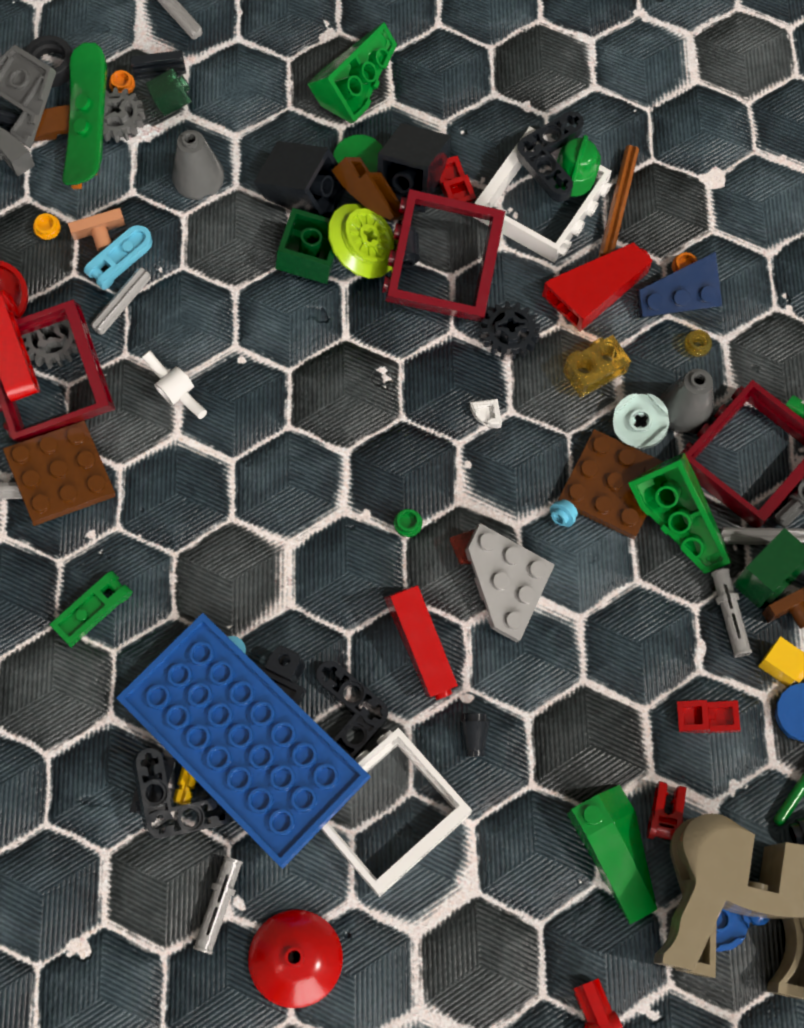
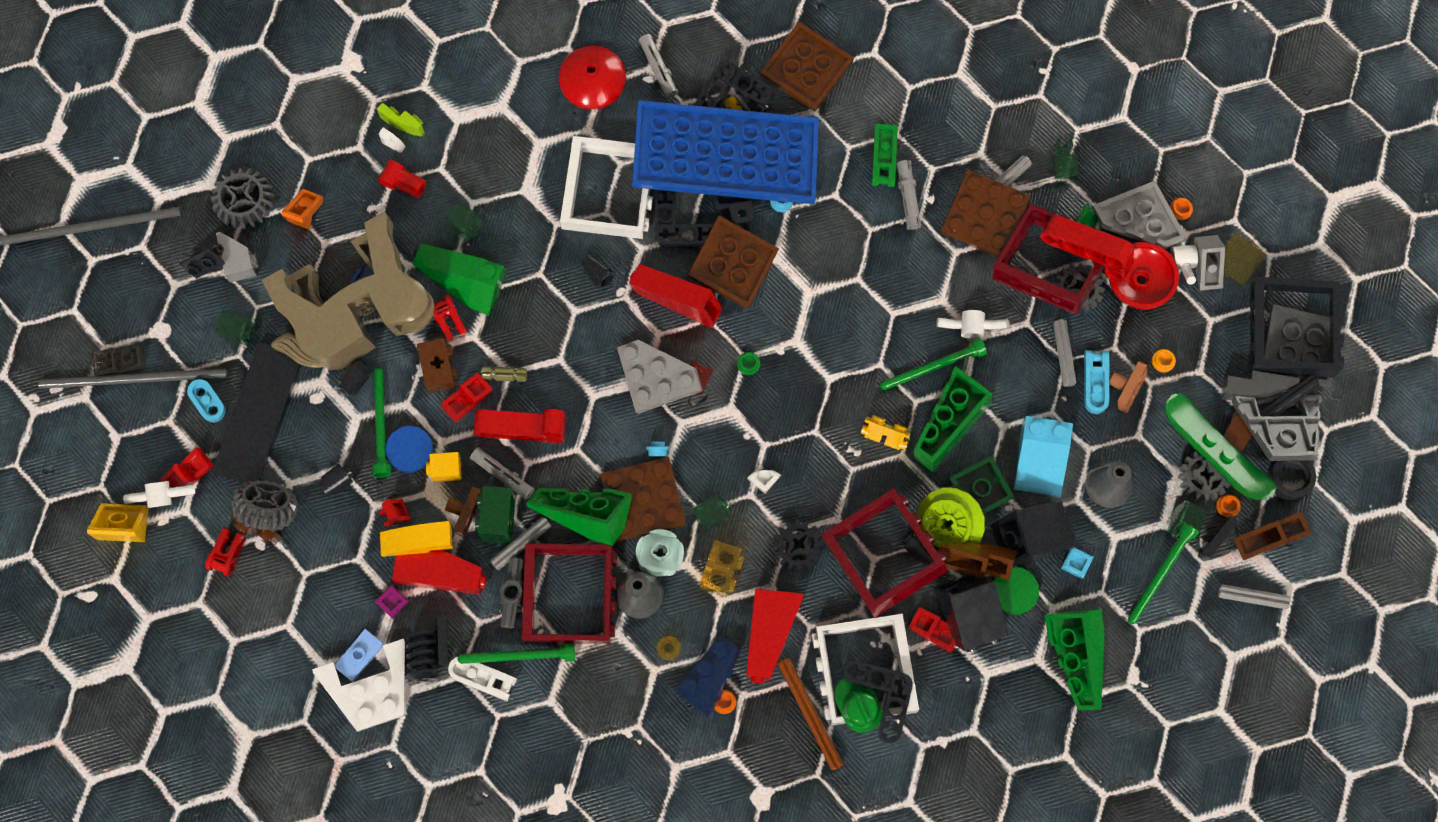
camera: 140 degrees right, 5 degrees up
(72, 767) = (806, 66): none -> reddish brown plate
(105, 554) = (907, 186): none -> light grey pin
(111, 33) = (1272, 536): none -> reddish brown slope
(182, 70) = (1186, 534): none -> green piece
(193, 365) = (975, 349): none -> green piece
(228, 235) = (1042, 456): none -> medium azure slope
(276, 320) = (952, 417): none -> green wedge
(286, 134) = (1077, 562): none -> medium azure tile
(336, 352) = (878, 427): none -> yellow hinge
(336, 625) = (733, 262): none -> reddish brown plate
(563, 417) = (711, 513): none -> clear green brick
(568, 904) = (464, 221): none -> clear green brick
(652, 709) = (504, 374): none -> olive axle
(677, 640) = (521, 426): none -> red beam
(728, 758) = (431, 353): none -> reddish brown brick

